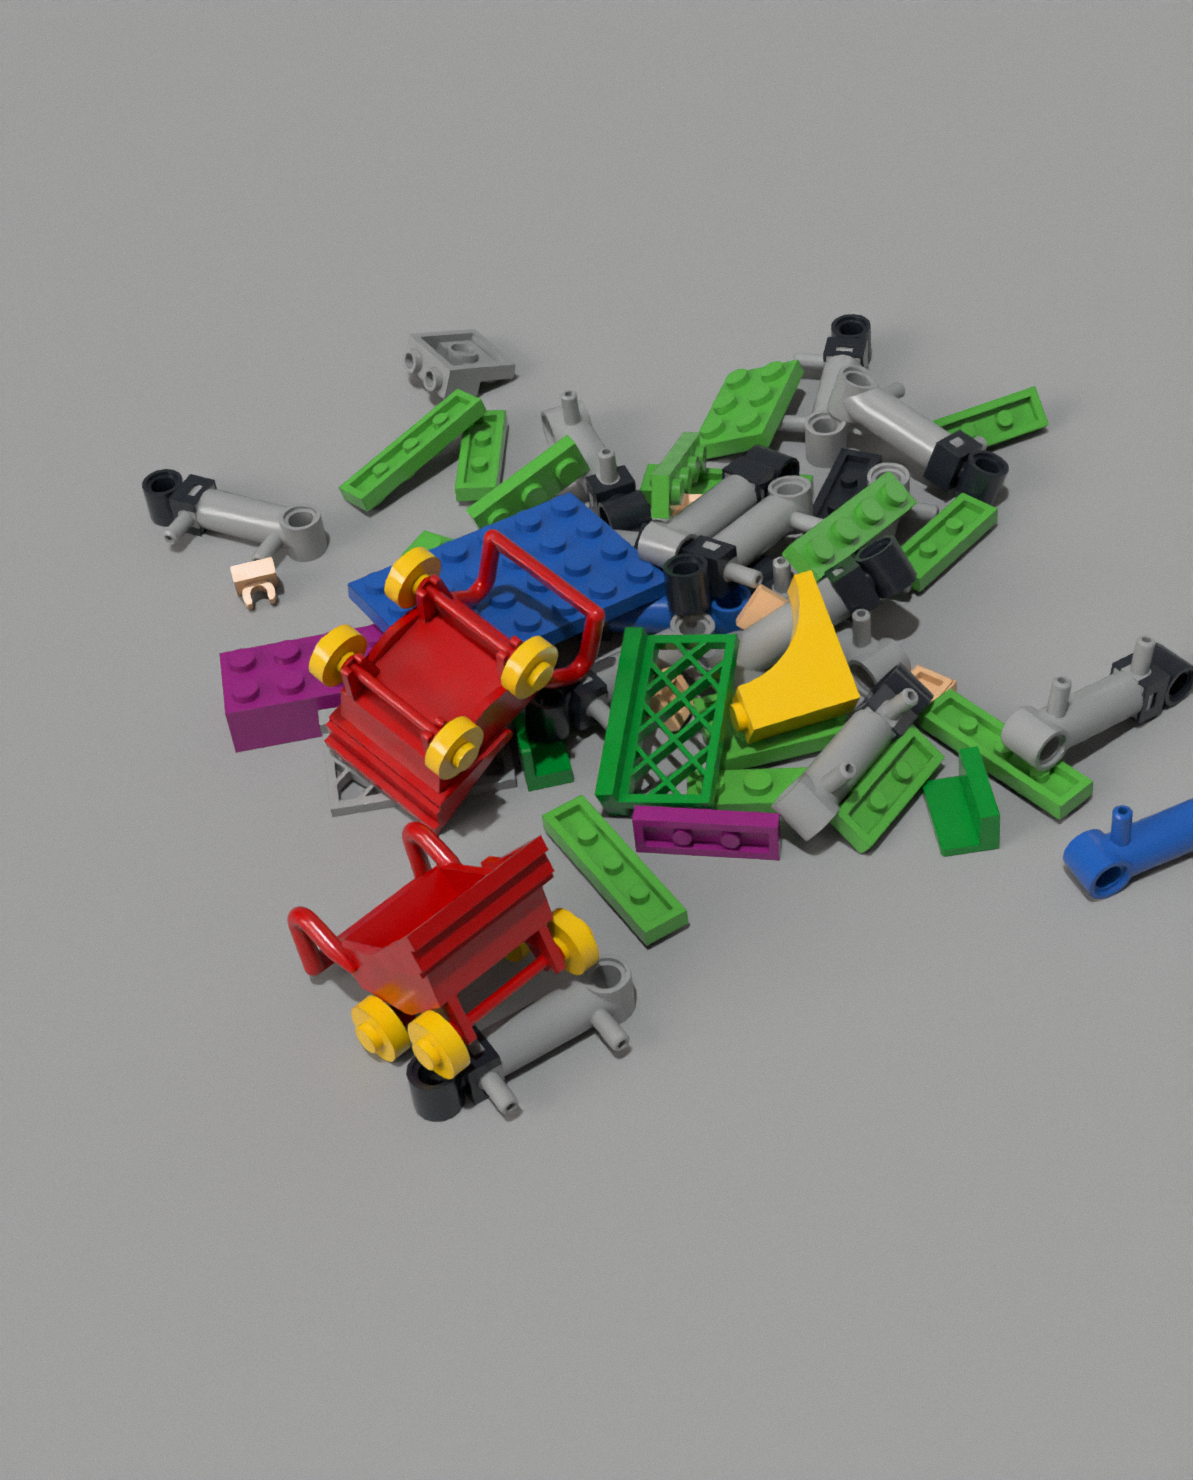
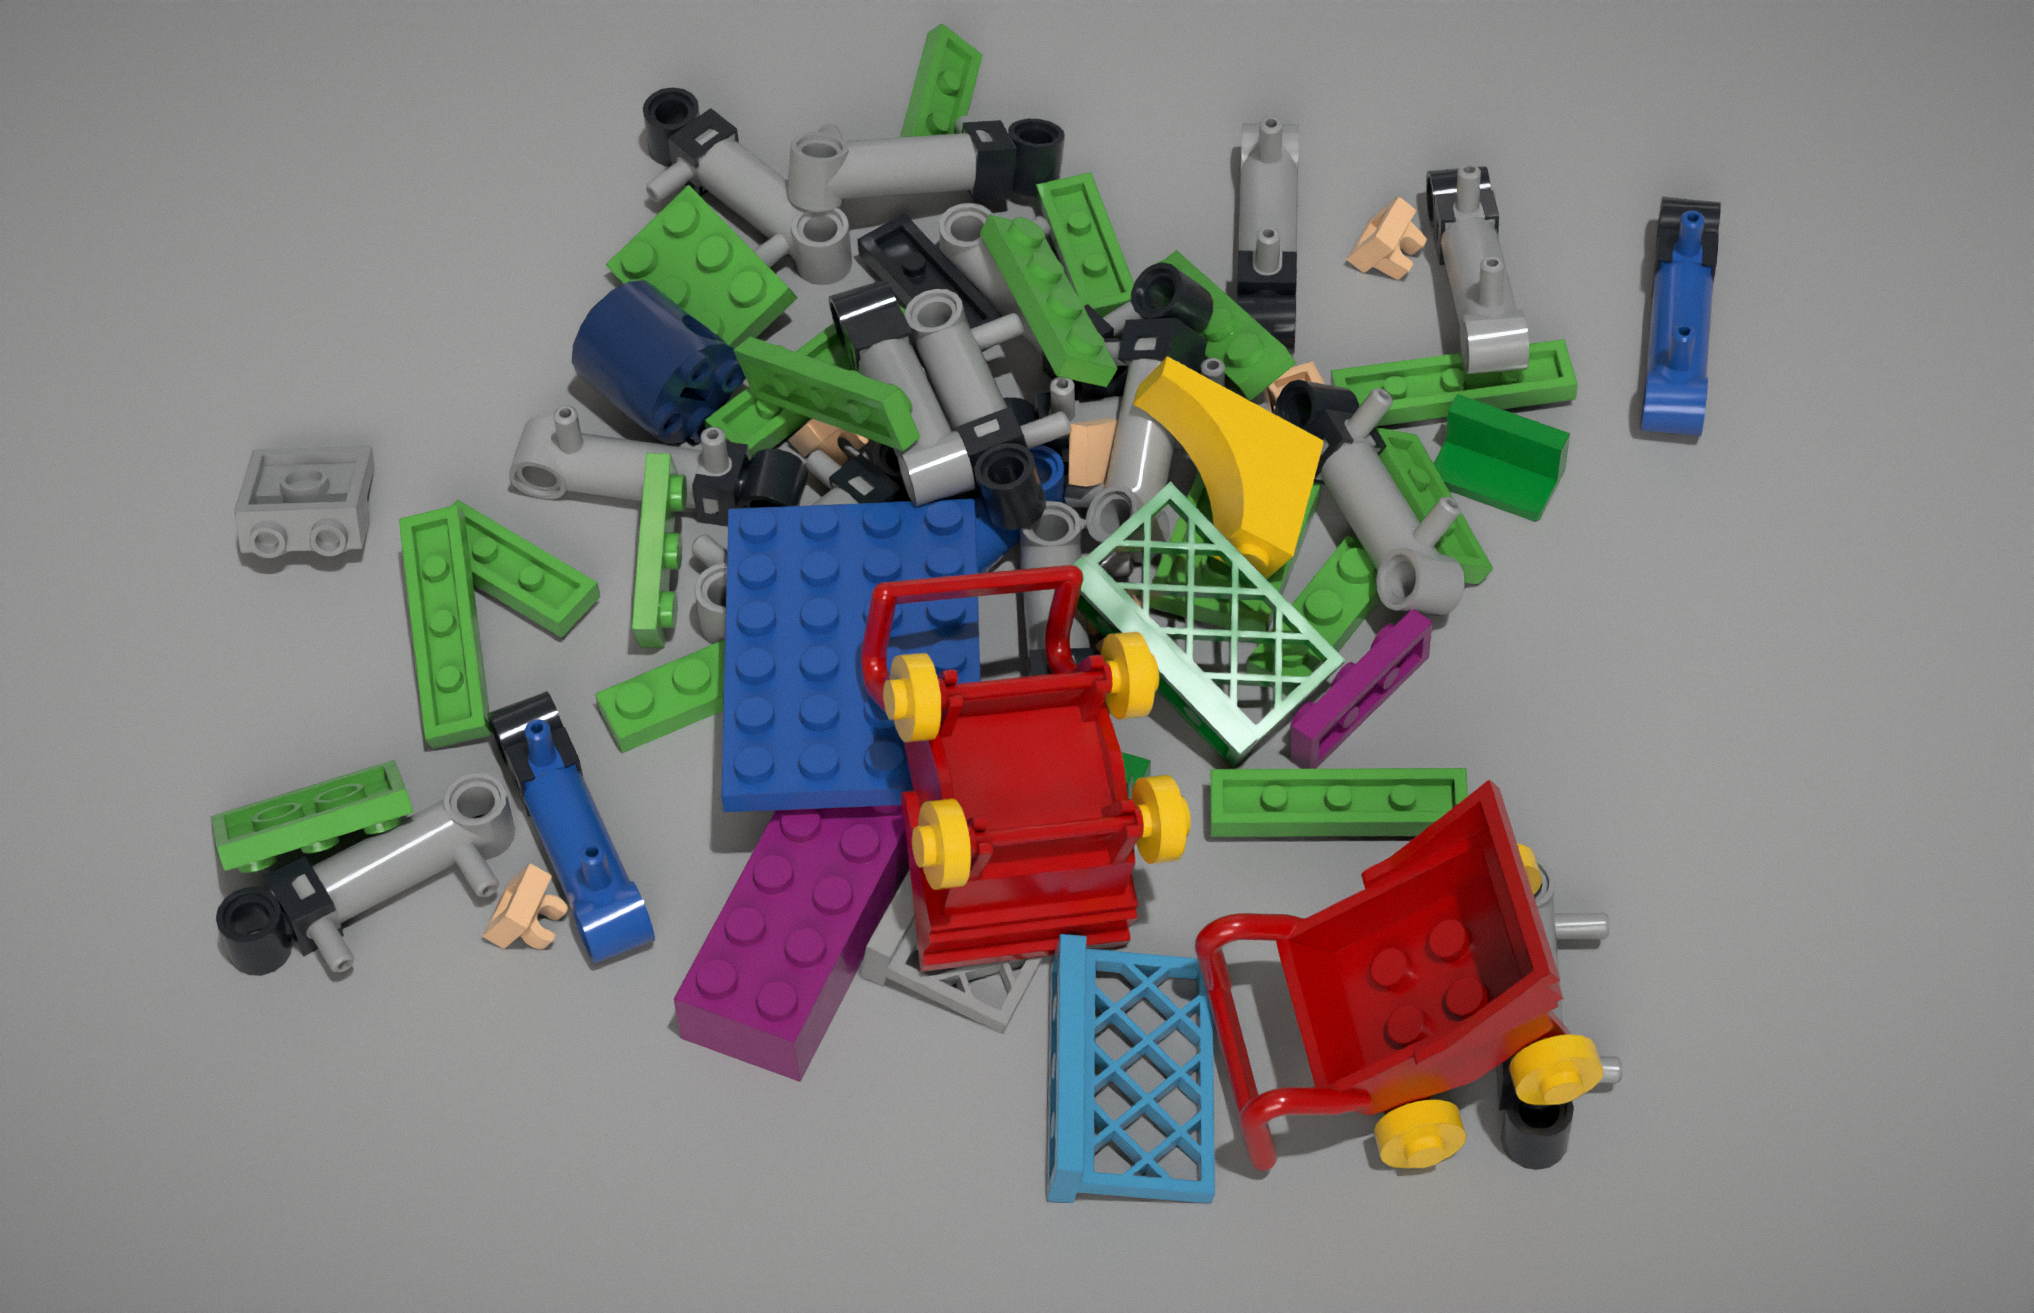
camera: 60 degrees left, 10 degrees up
(240, 469) = (311, 817): none -> bright green plate
(317, 851) = (1074, 1080): none -> dark azure fence
(350, 542) = (570, 826): none -> blue piece
(656, 409) = (655, 361): none -> dark blue cylinder
(917, 611) = (1247, 349): none -> bright green plate
(998, 622) = (1269, 227): none -> light grey piece
(1089, 656) = (1383, 238): none -> light nougat tile

